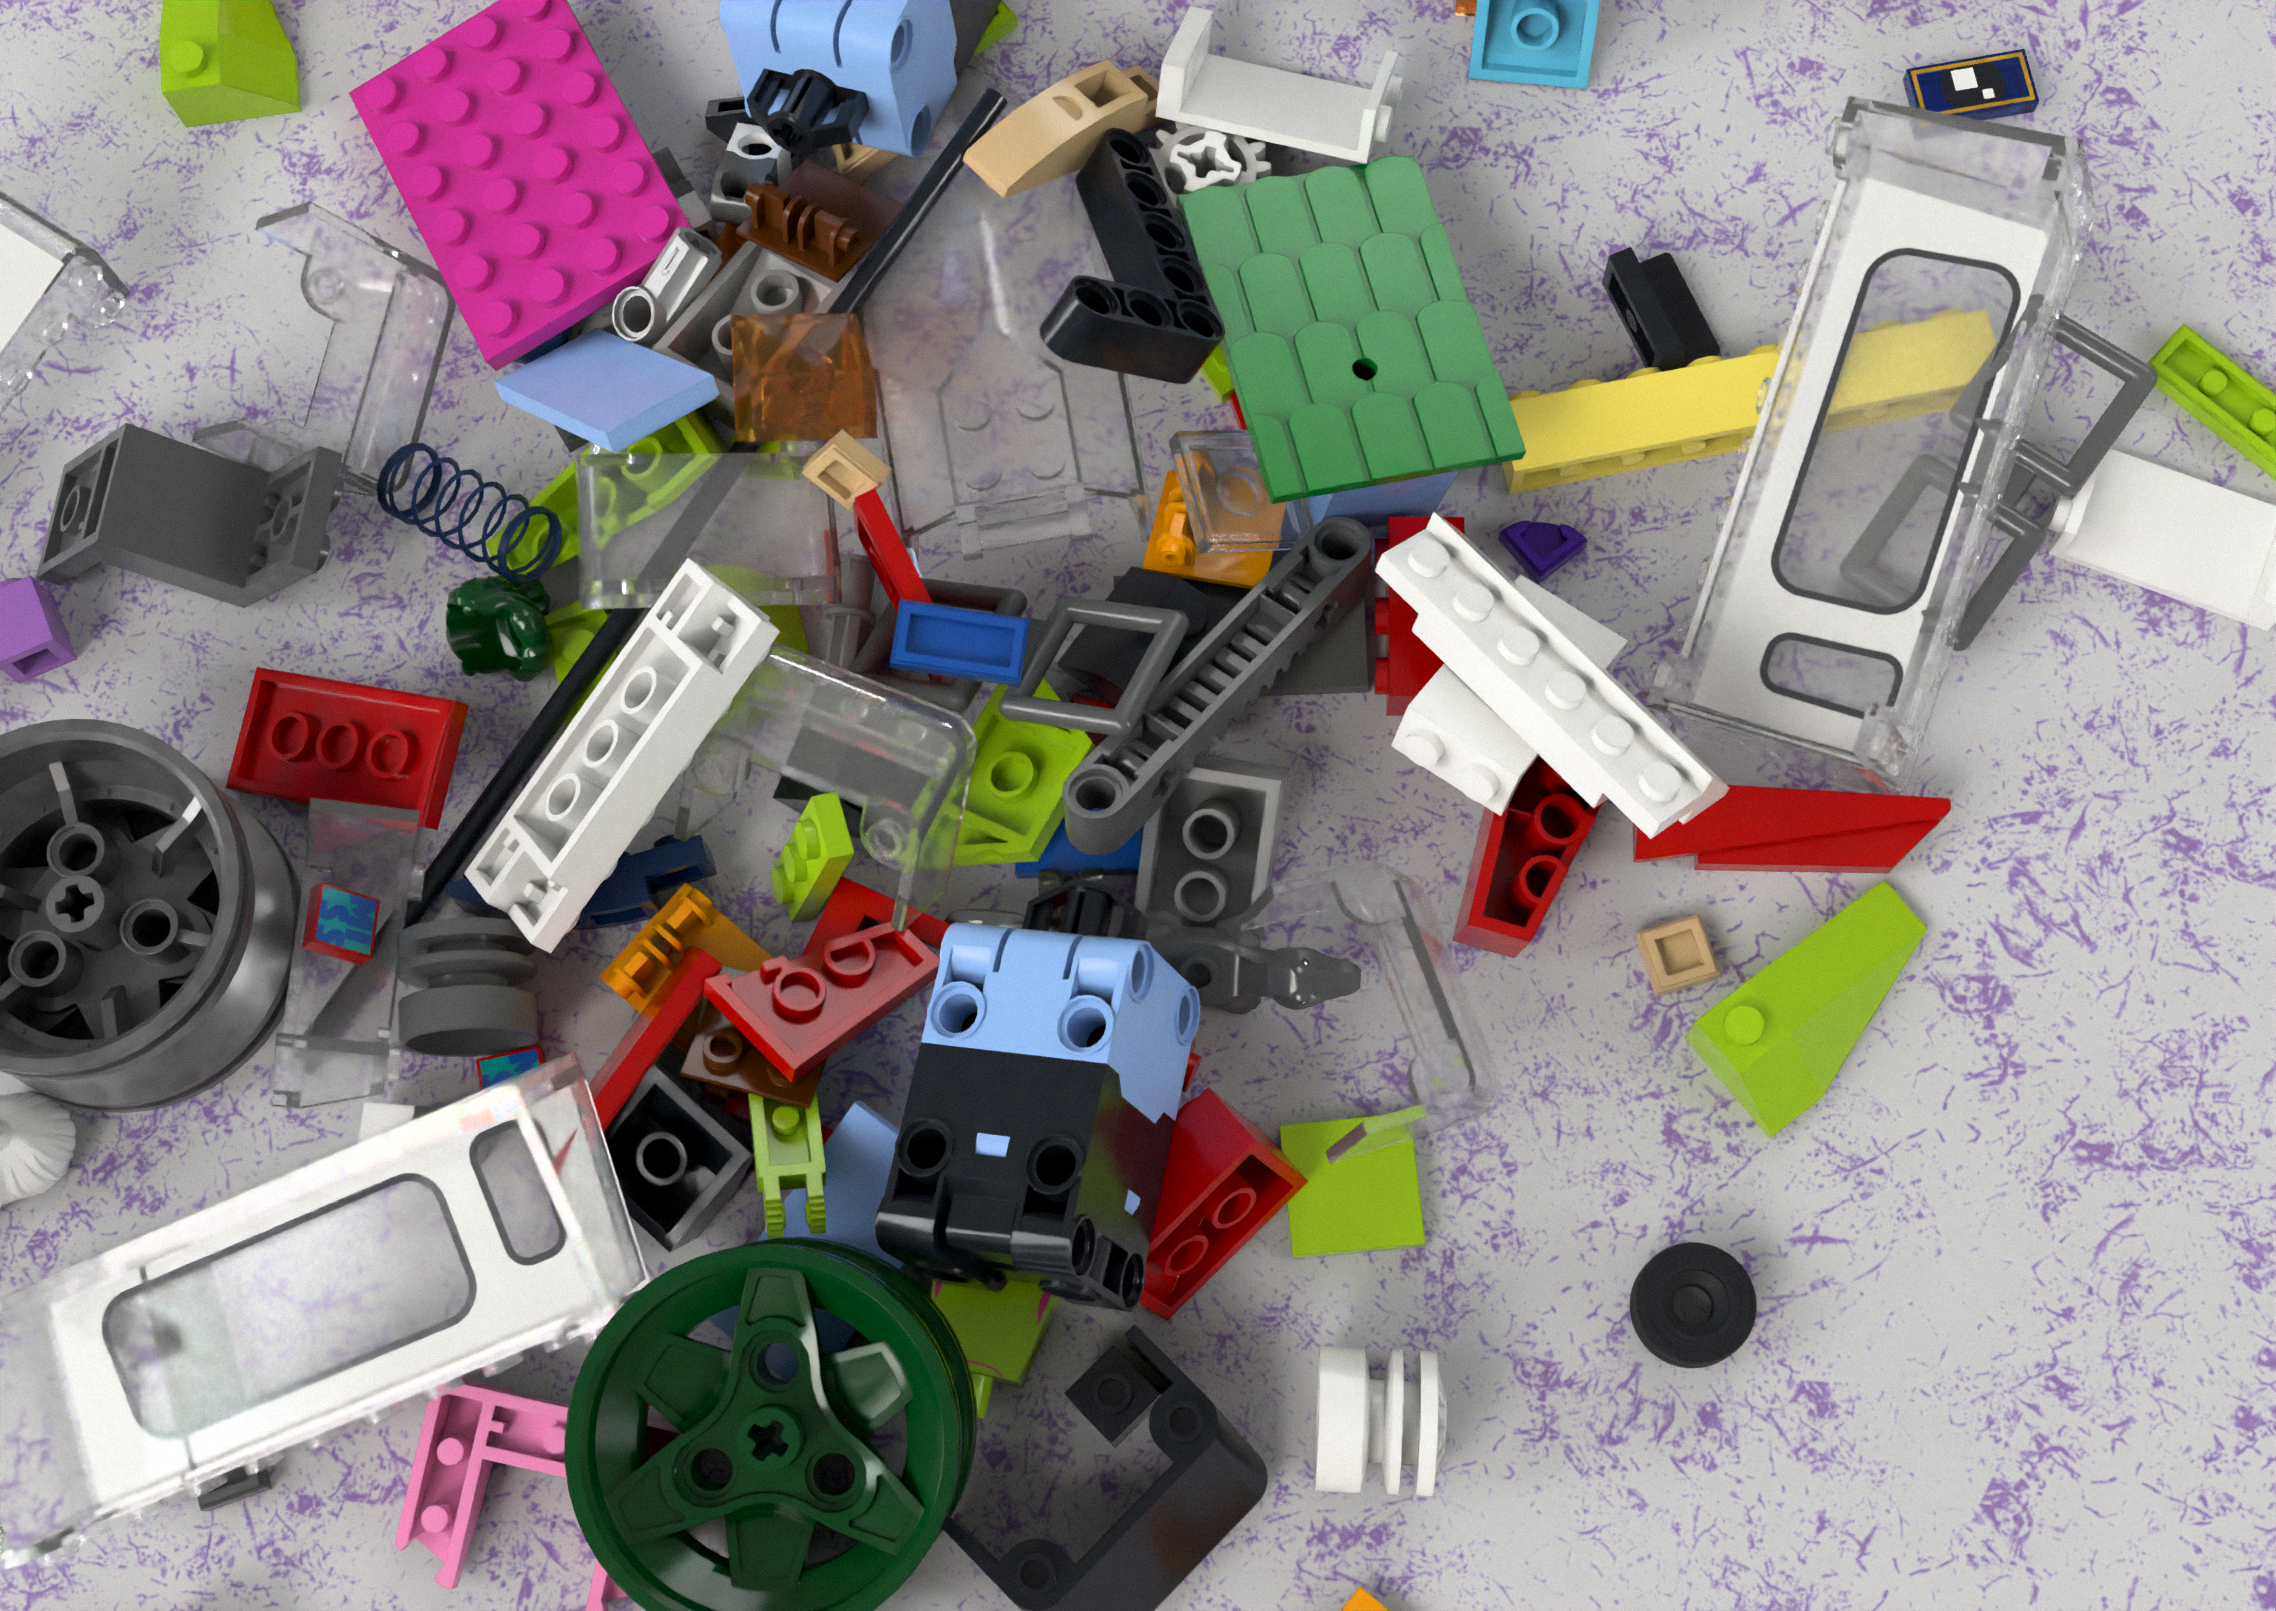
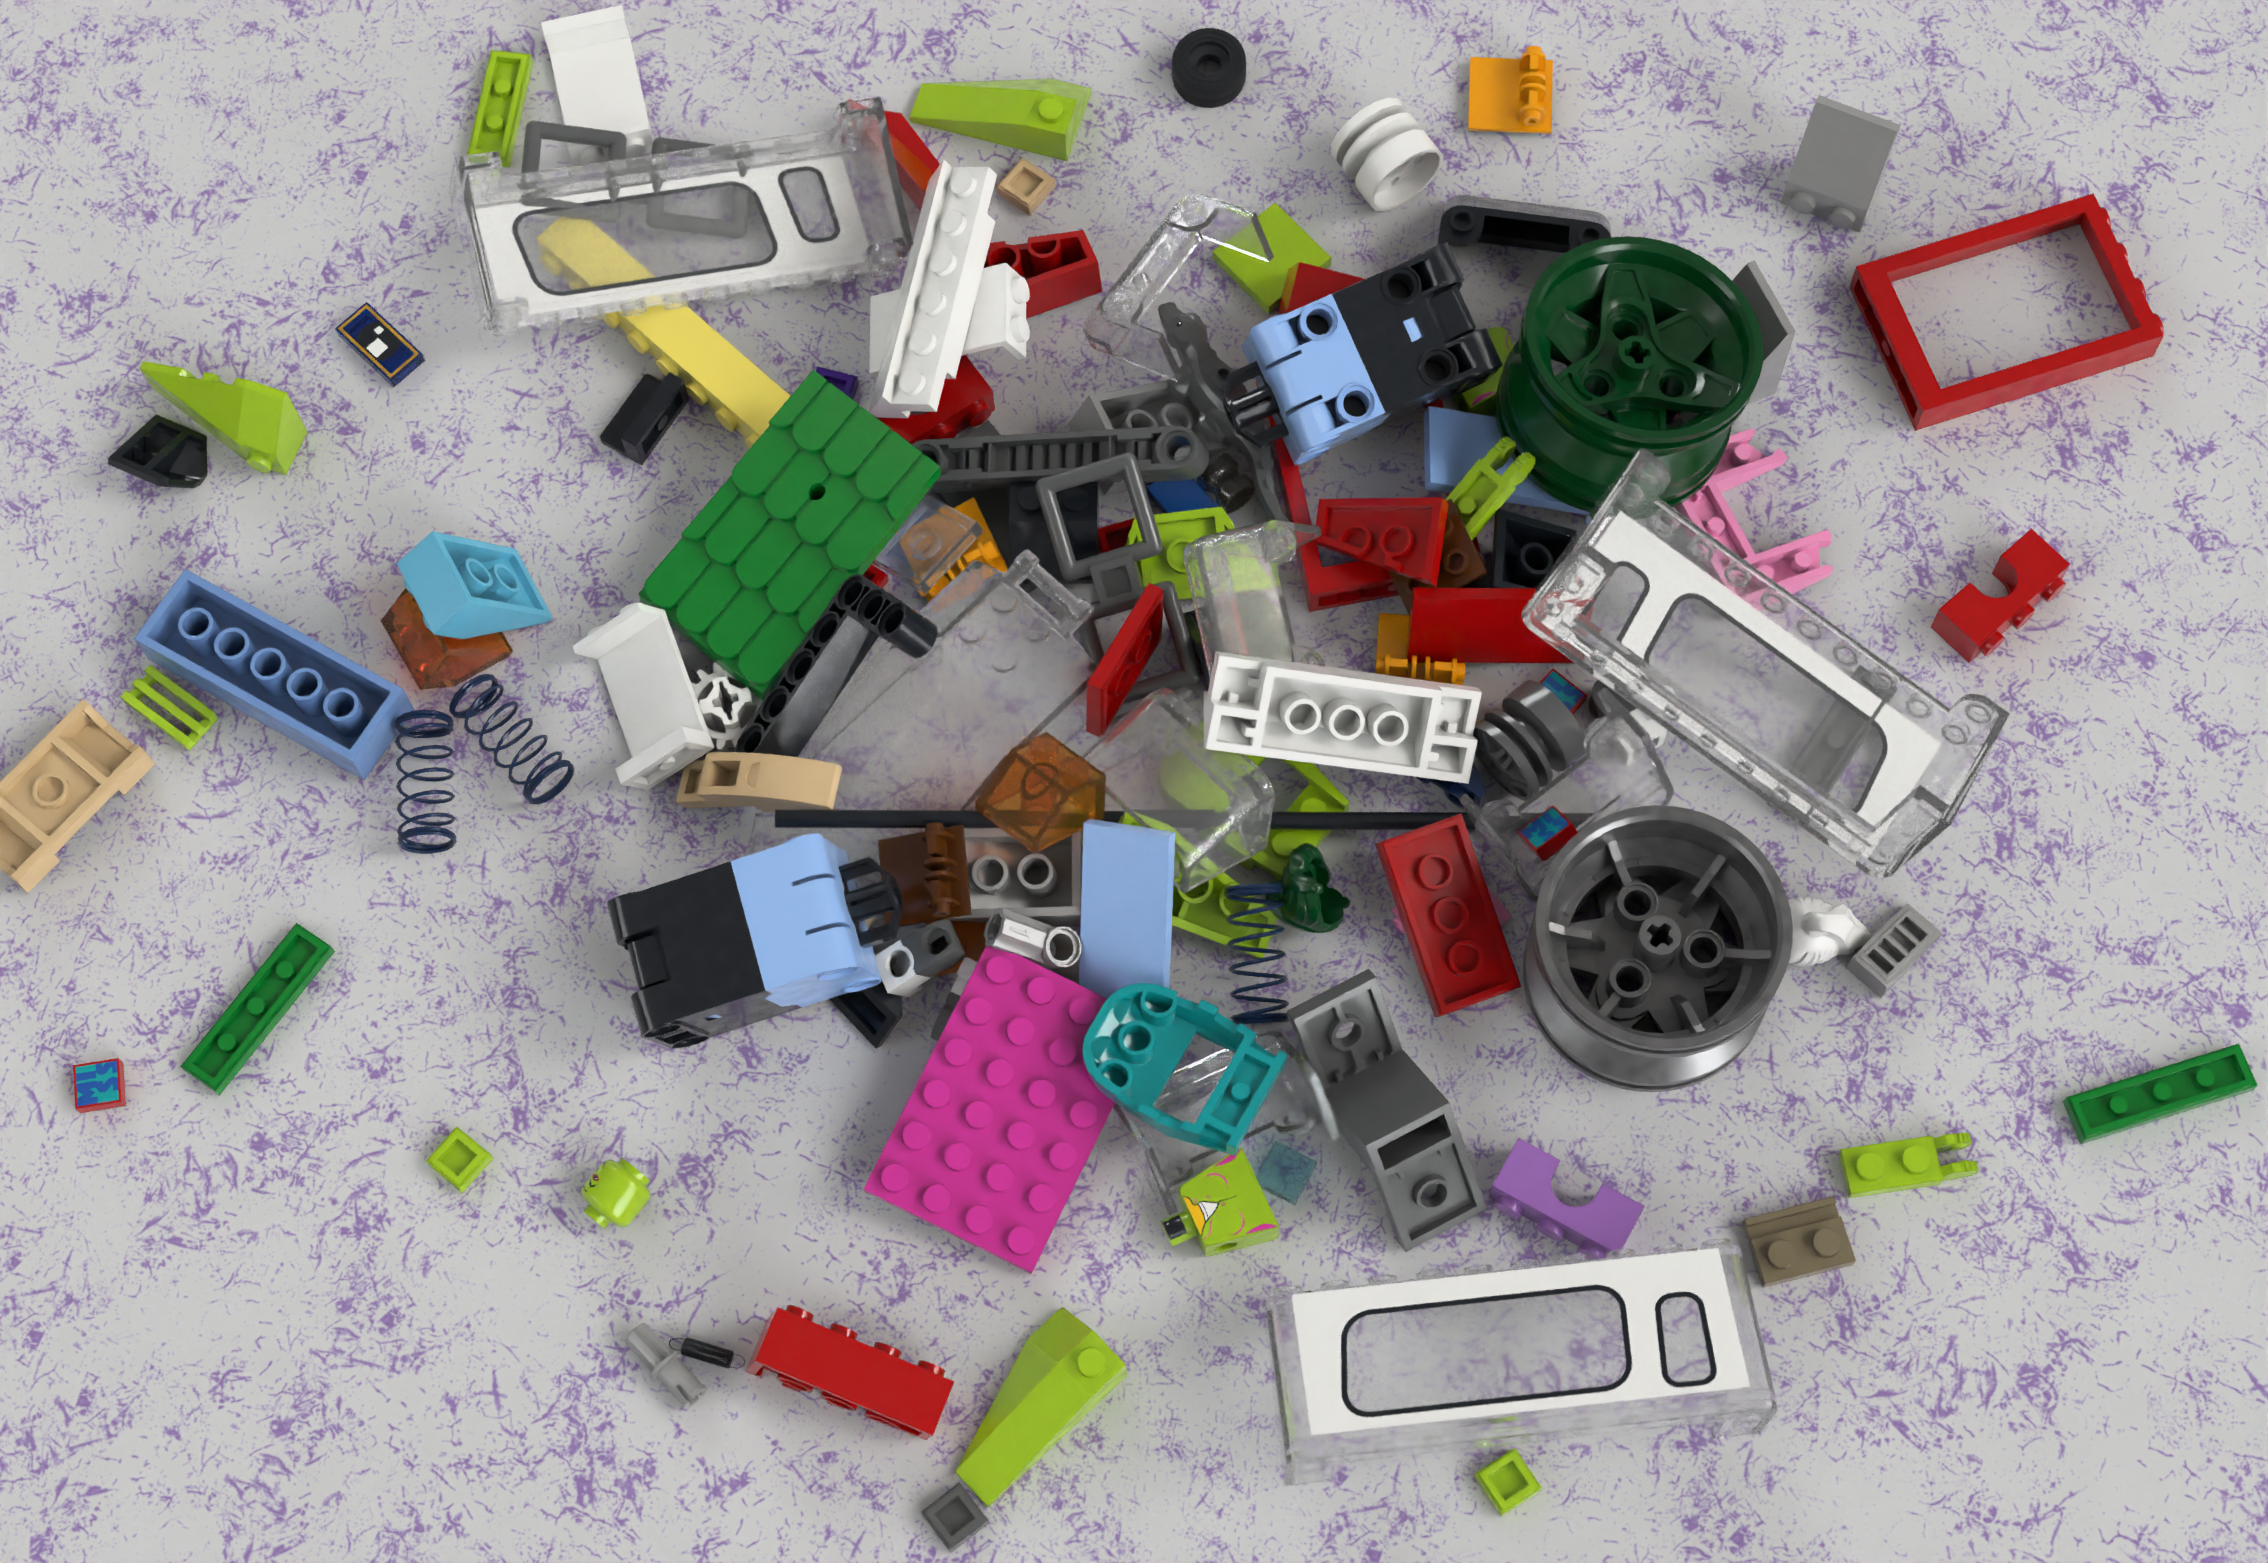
camera: 130 degrees left, 5 degrees down
(244, 397) = (1285, 1172): none -> clear light blue tile
(248, 313) = (1223, 1209): none -> lime torso
(456, 305) = (1141, 1042): none -> teal slope
(812, 858) = (1315, 600): lime plate -> none
(845, 469) = (1081, 727): tan tile -> none
(959, 643) = (1142, 583): blue tile -> none
(1113, 1396) = (1477, 283): black brick -> none

